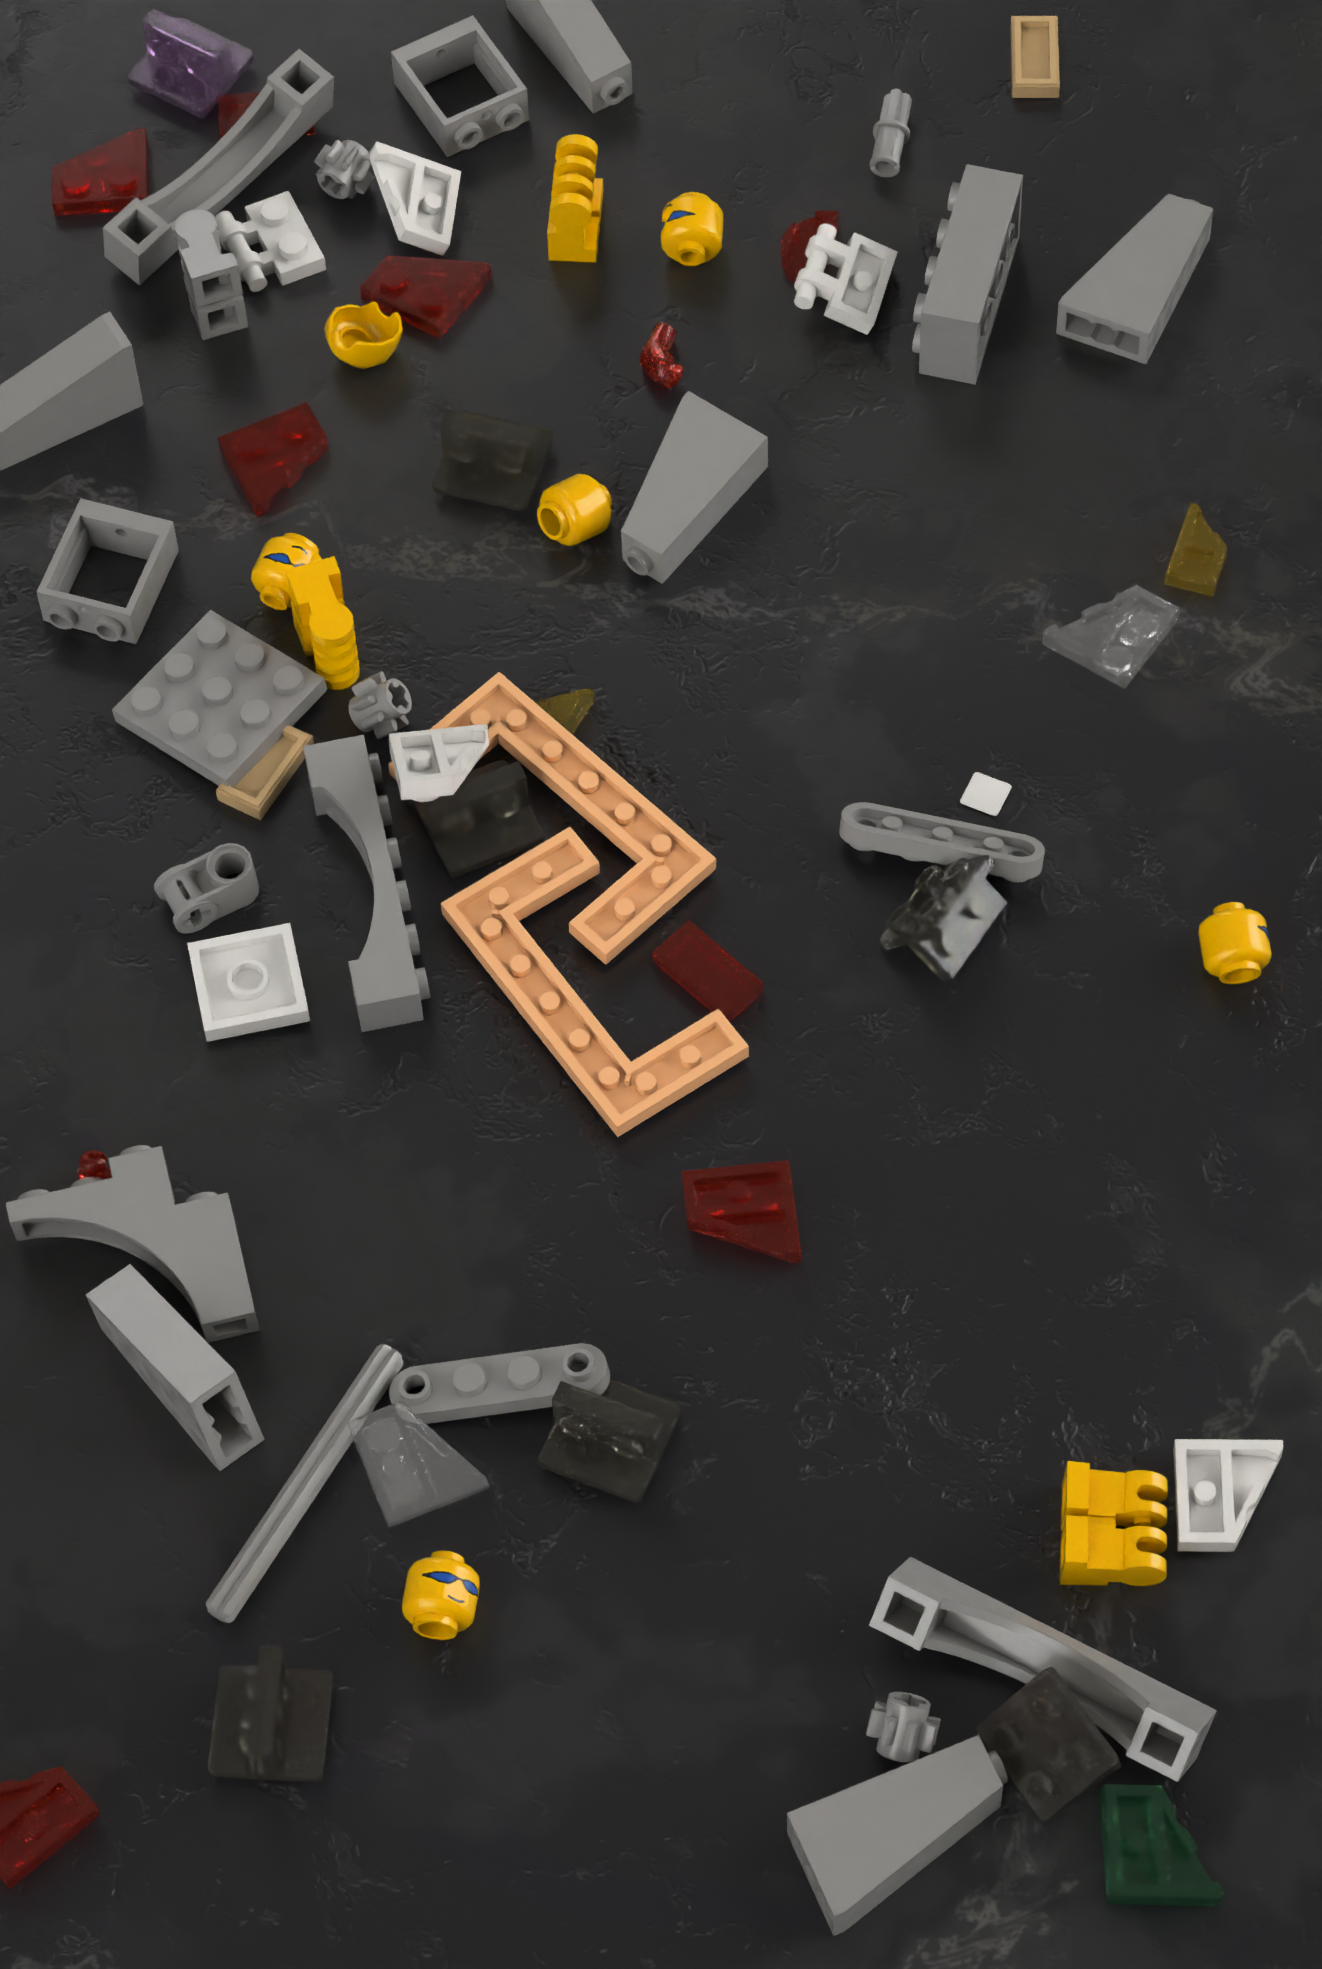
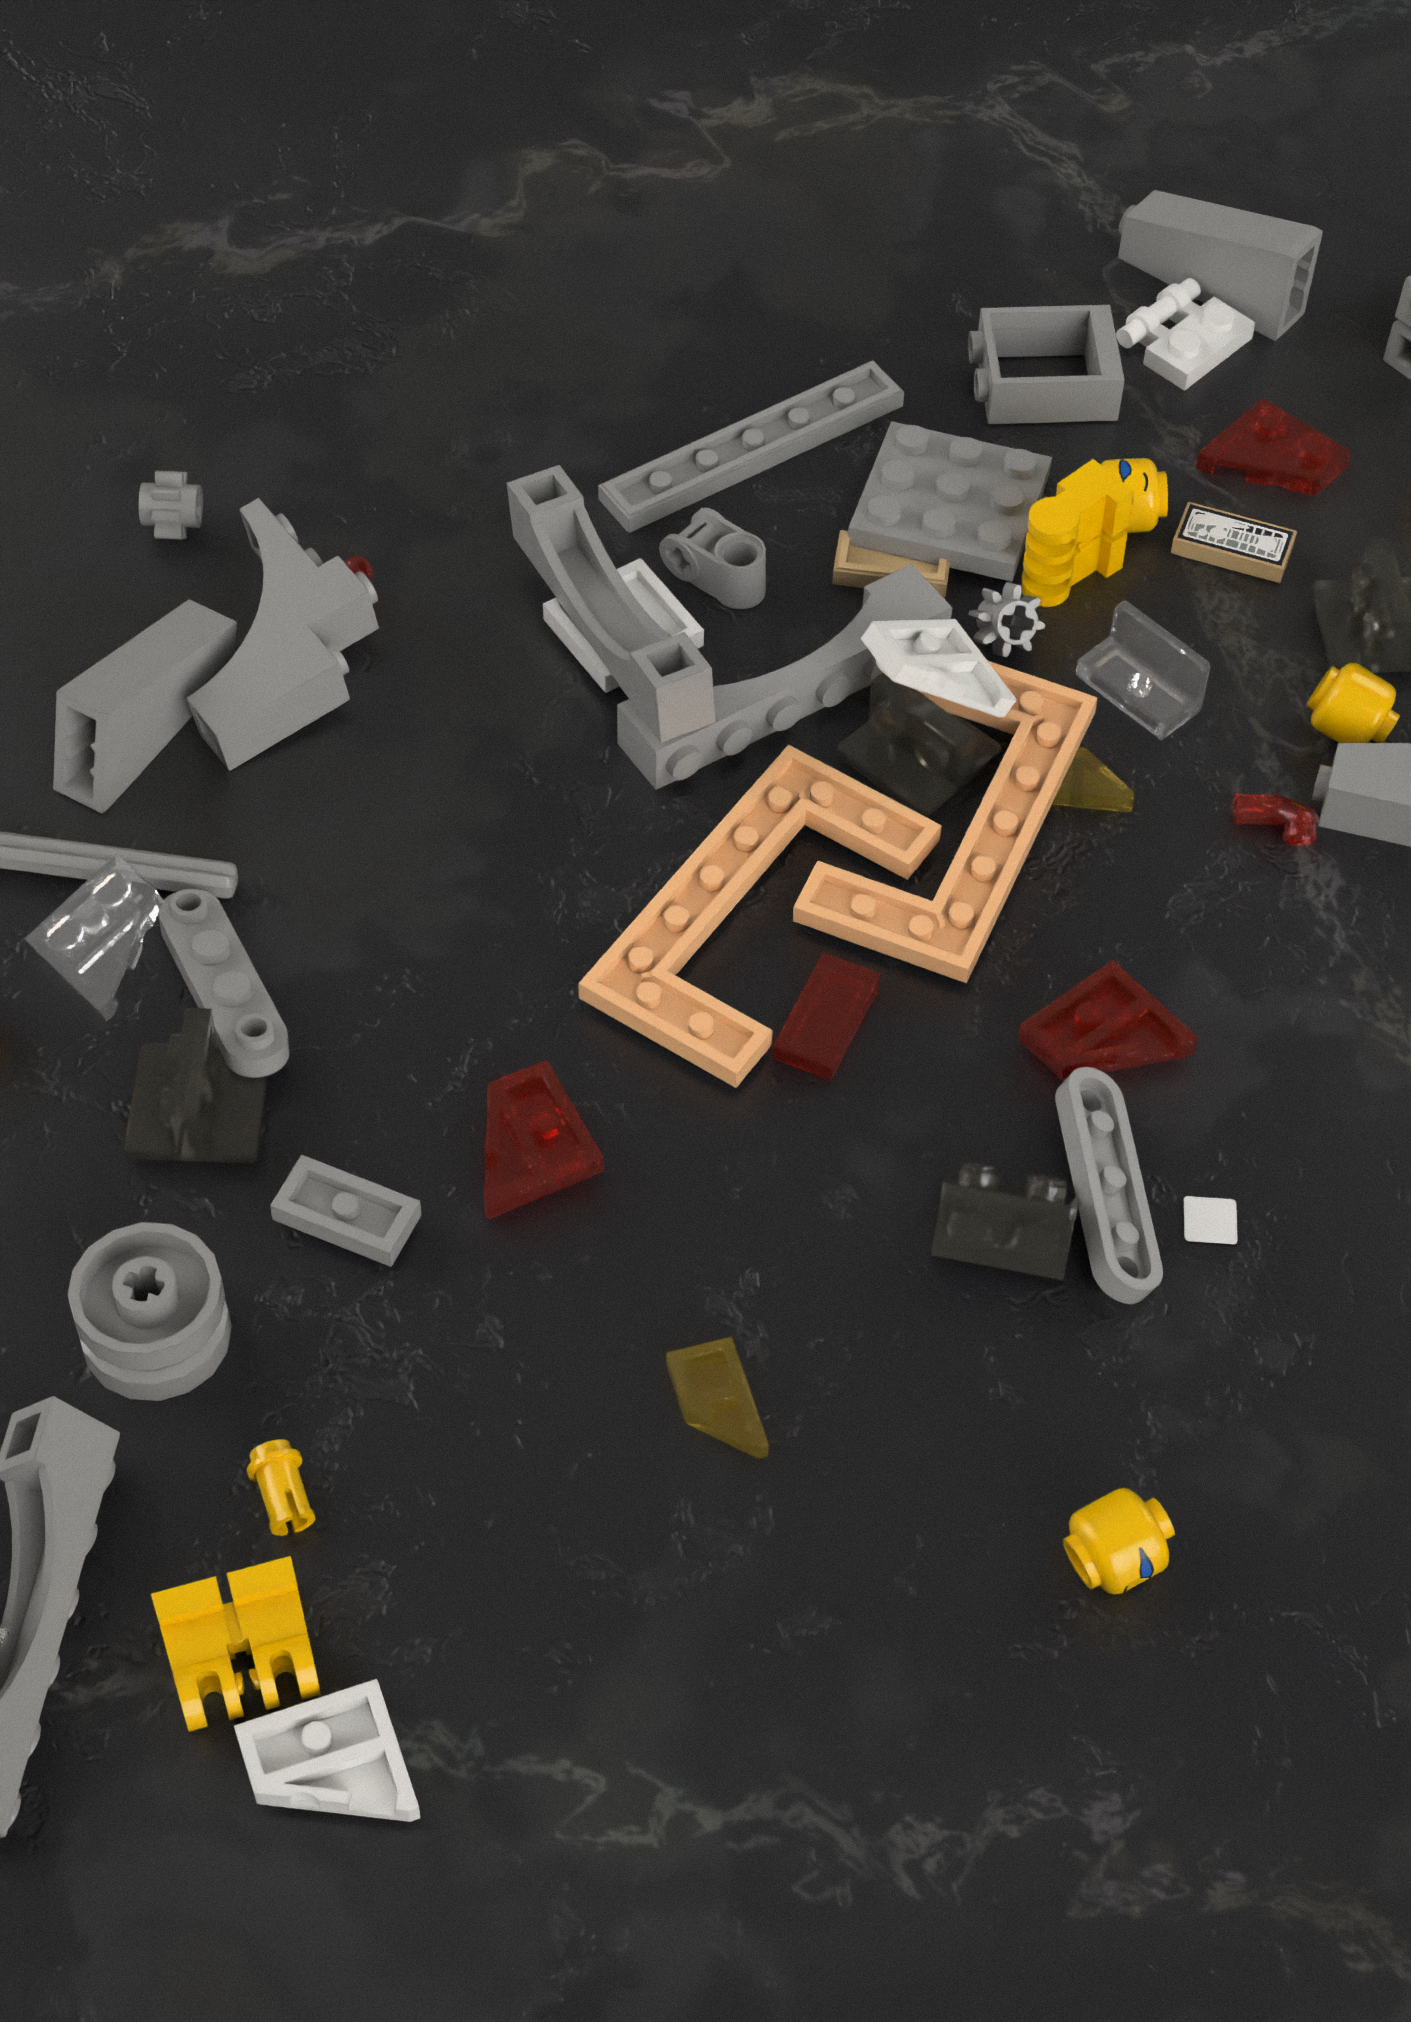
camera: 65 degrees right, 5 degrees down
(80, 825) = (750, 446): none -> light grey tile
(123, 455) = (1198, 341): none -> white plate
(160, 988) = (656, 671): none -> light grey arch
(359, 521) = (1233, 542): none -> tile
(473, 633) = (1146, 672): none -> clear panel
(646, 599) = (1278, 810): none -> clear red arm
(759, 1354) = (346, 1210): none -> light grey plate
(800, 791) = (1105, 1026): none -> clear red wing
(809, 1509) = (150, 1311): none -> light grey wheel
(987, 1465) = (282, 1490): none -> yellow pin
(1014, 1157) = (717, 1395): none -> clear yellow tile

